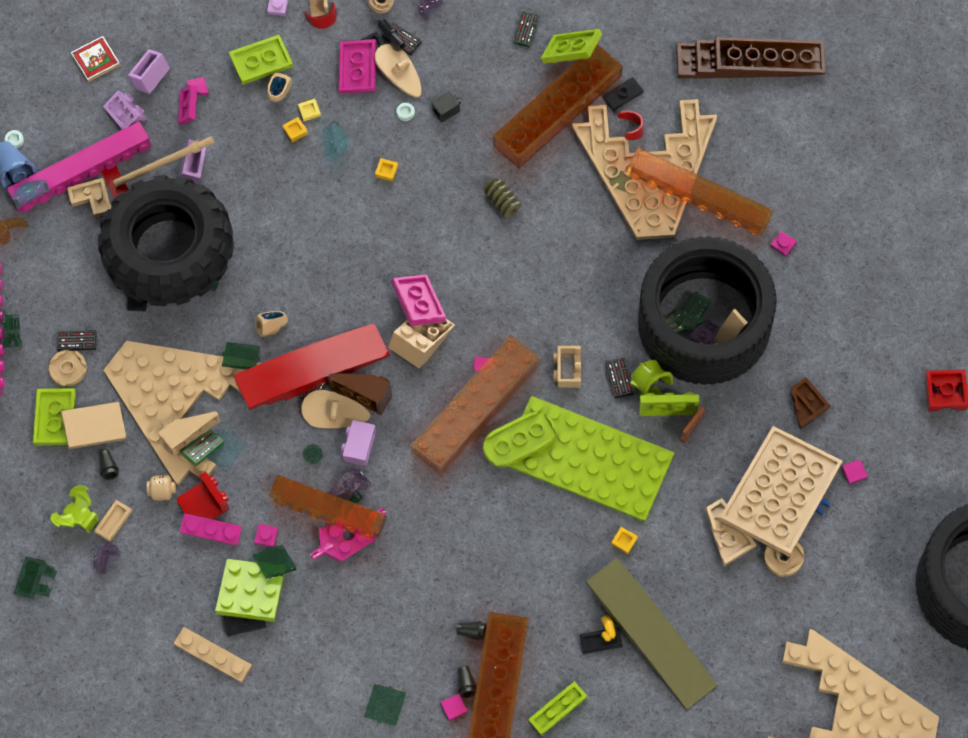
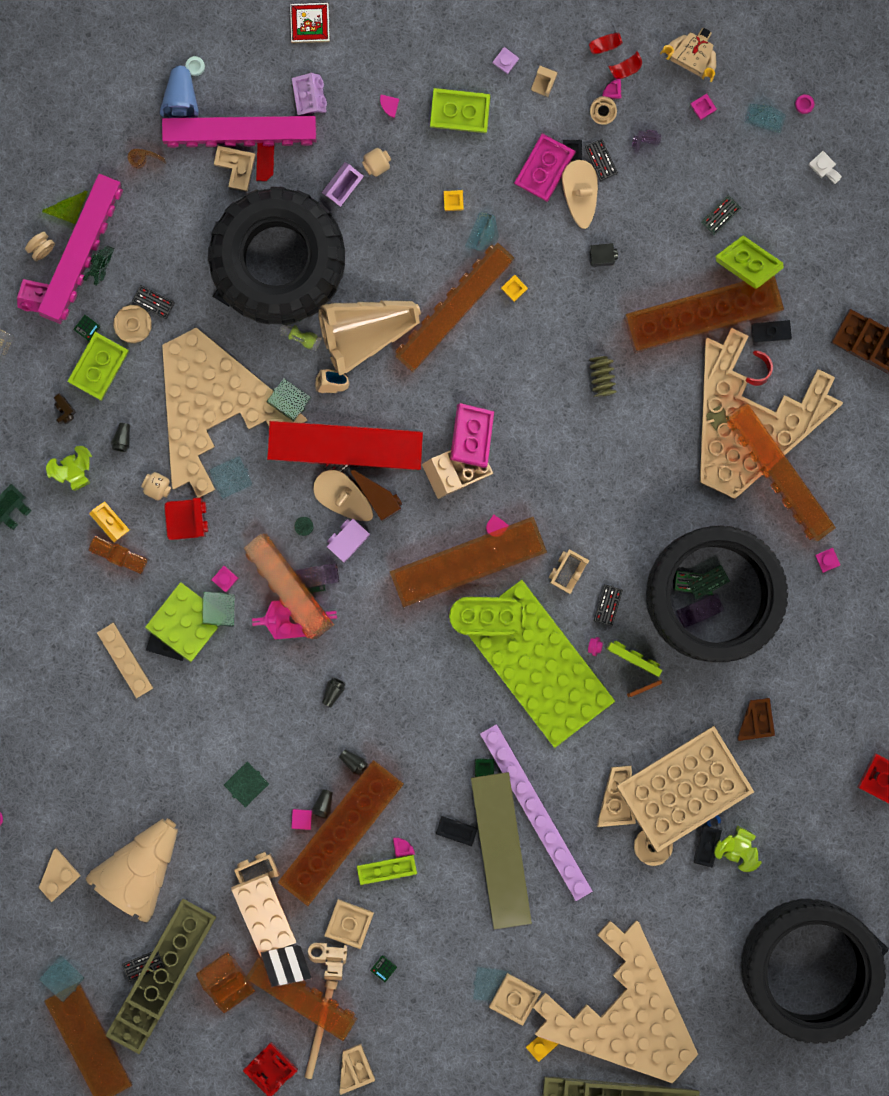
camera: 25 degrees right, 20 degrees up
(27, 391) = (86, 327): none -> dark green tile
(29, 191) = (179, 134): clear light blue slope -> none
(39, 464) = (63, 405): none -> dark brown bracket
(93, 425) = (127, 394): tan tile -> none
(101, 560) = (73, 523): clear purple bracket -> none
(113, 521) = (101, 491): tan tile -> none
(133, 540) = (109, 521): none -> yellow plate
(149, 71) = (350, 67): lavender piece -> none
(157, 565) = (118, 555): none -> clear orange piece
(184, 431) = (197, 448): tan slope -> none
(187, 105) = (368, 120): dark pink plate -> none
(194, 147) = (349, 178): tan bar -> none
(202, 448) = (210, 469): tile -> none
(210, 529) = (179, 548): dark pink plate -> none
(212, 128) = (376, 162): none -> tan head
(230, 299) = (307, 339): none -> clear piece
(272, 263) = (363, 329): none -> tan cone
(278, 87) = (460, 150): rock -> none
(309, 110) = (477, 186): light yellow tile -> none
(323, 22) = (540, 103): red helmet -> none
(344, 210) = (455, 307): none -> clear orange brick
(391, 35) = (592, 153): black axle -> none
(405, 111) = (563, 238): light aqua tile -> none
(418, 578) = (333, 691): none -> pearl dark grey cone
(560, 682) = (402, 847): none -> dark pink tile
(591, 569) = (484, 767): none -> dark green tile
(609, 626) = (468, 826): yellow arm -> none
(624, 540) = (526, 755): yellow plate -> none
(629, 416) = (595, 646): none -> dark pink plate
(647, 374) = (630, 622): lime helmet -> none
(665, 586) = (536, 813): none -> lavender plate
(732, 327) = (724, 626): tan slope -> none
(831, 530) = (707, 842): none -> black plate
(854, 472) = (759, 805): dark pink tile -> none
(859, 514) = (739, 846): none -> lime animal

